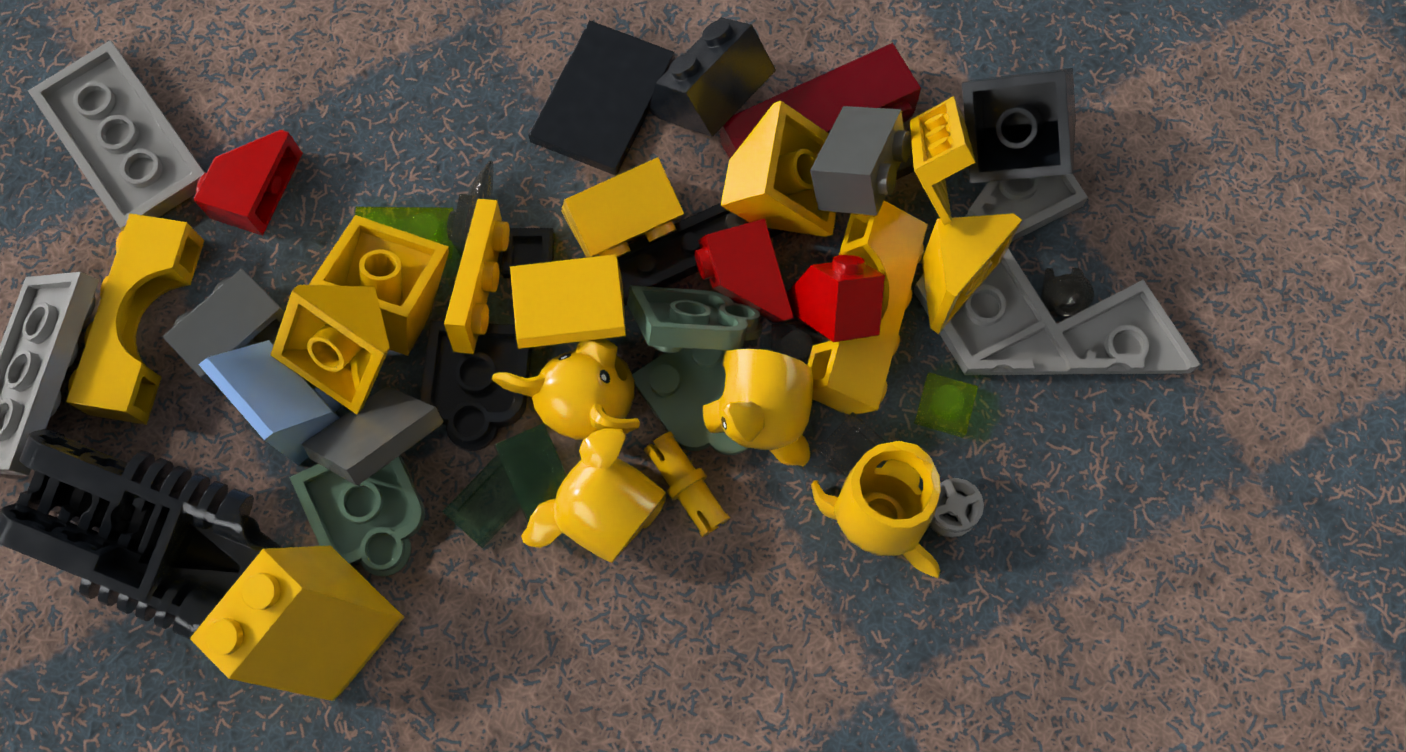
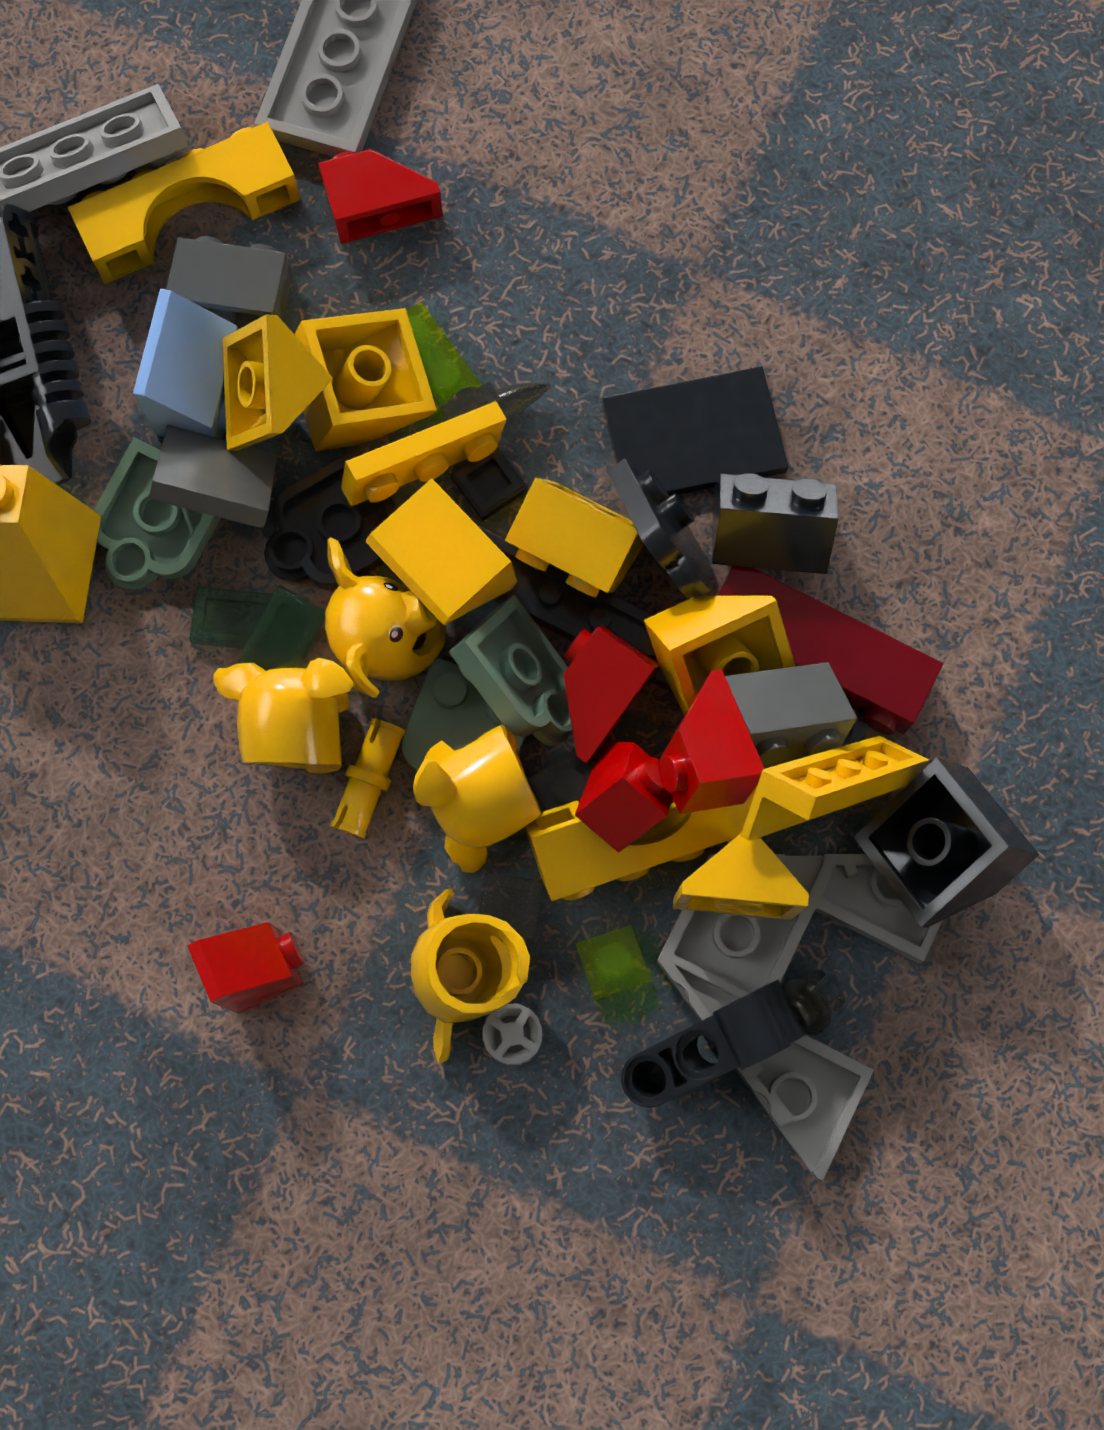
camera: 50 degrees right, 5 degrees up
(646, 144) = (663, 527): none -> black plate
(773, 662) = (247, 965): none -> red slope
(857, 213) = (711, 752): none -> red slope
(1070, 331) = (742, 1032): none -> black piece

